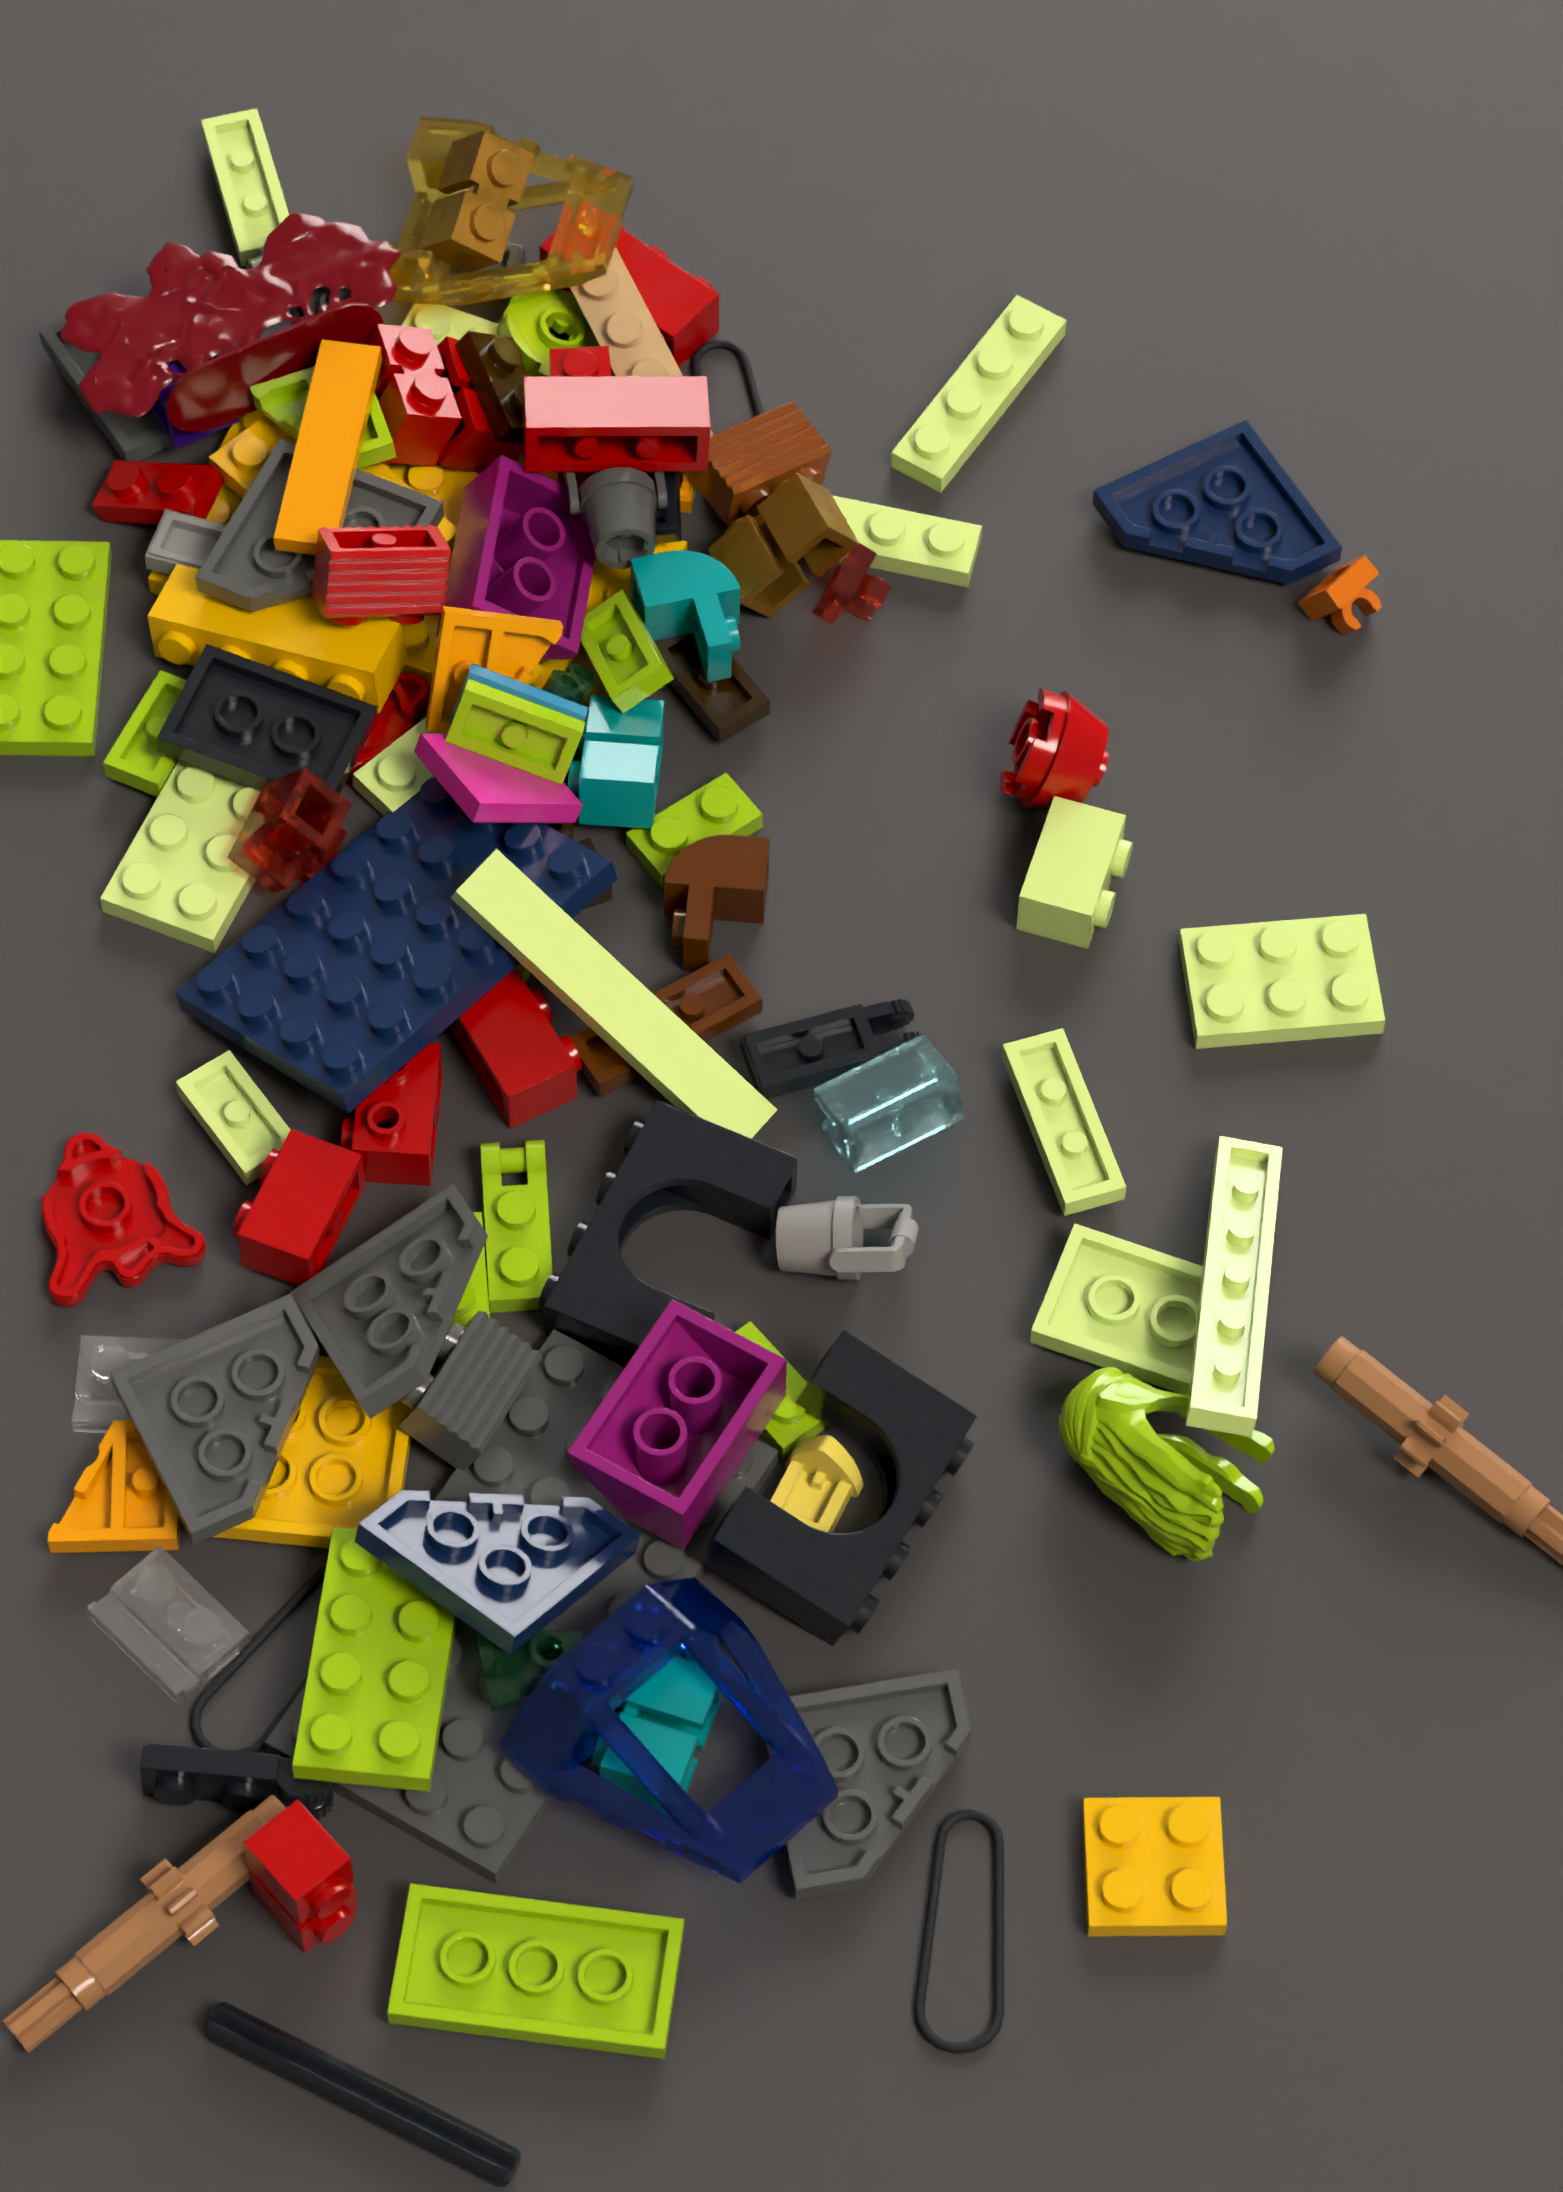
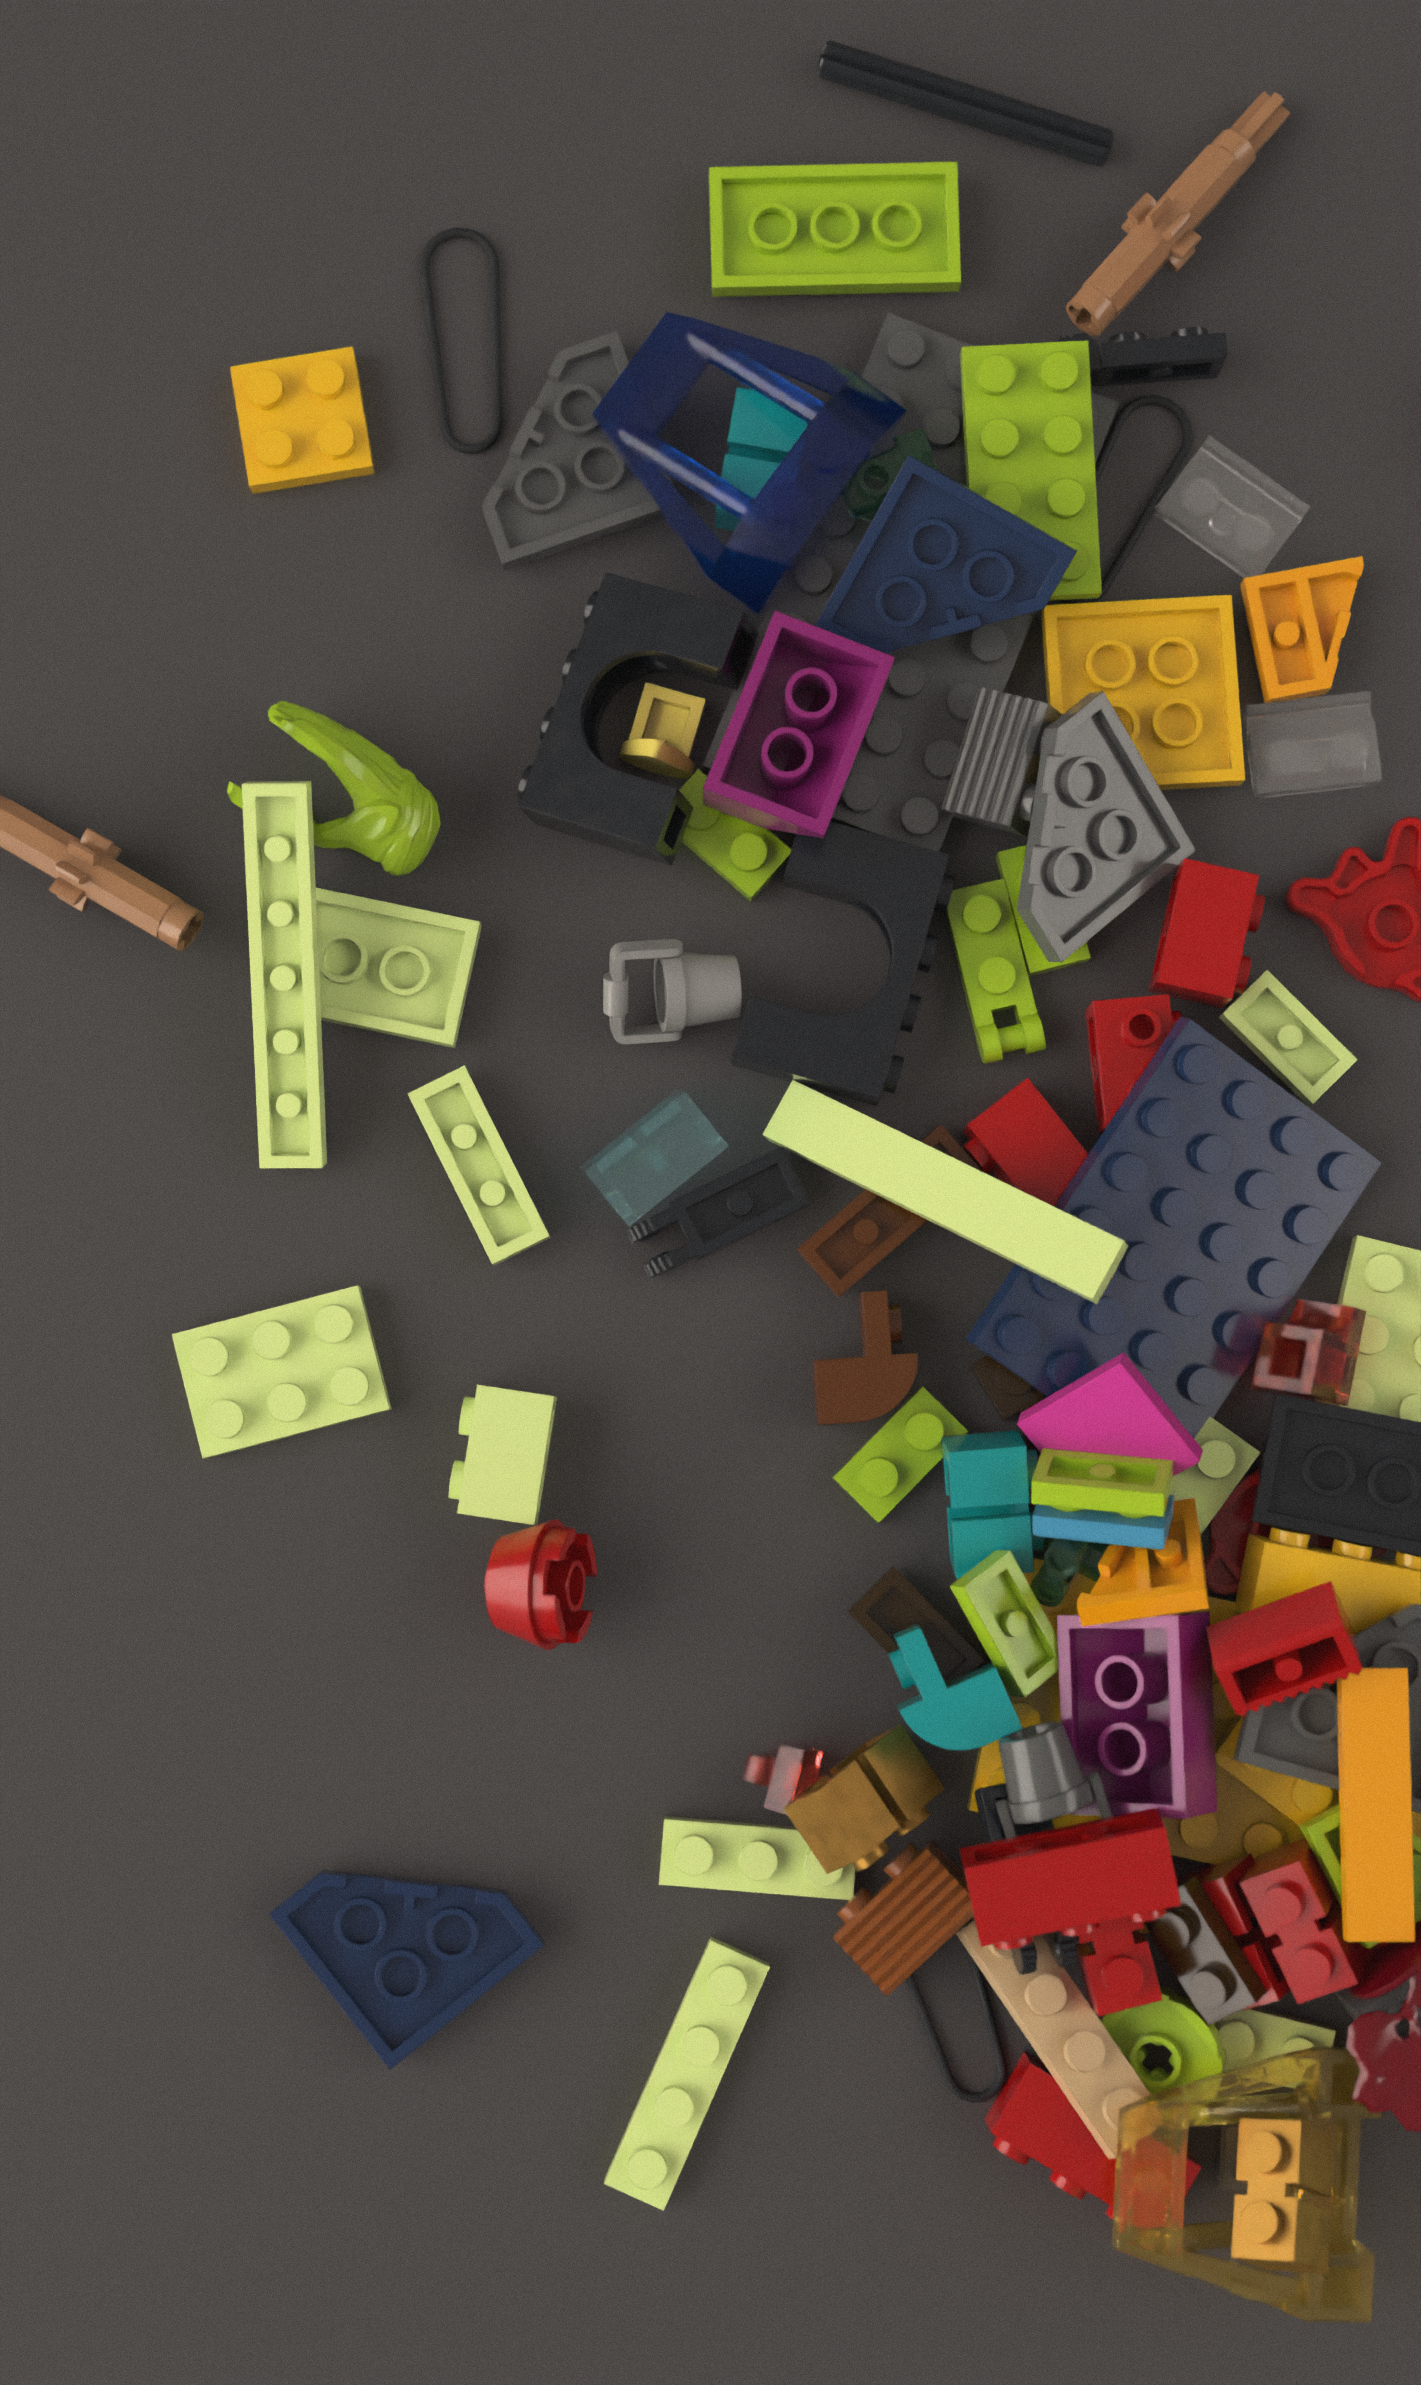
camera: 170 degrees right, 25 degrees up
(221, 1411) = (1232, 693): dark grey plate -> none
(302, 1877) = (1055, 248): red piece -> none
(1338, 592) = (265, 1859): orange tile -> none

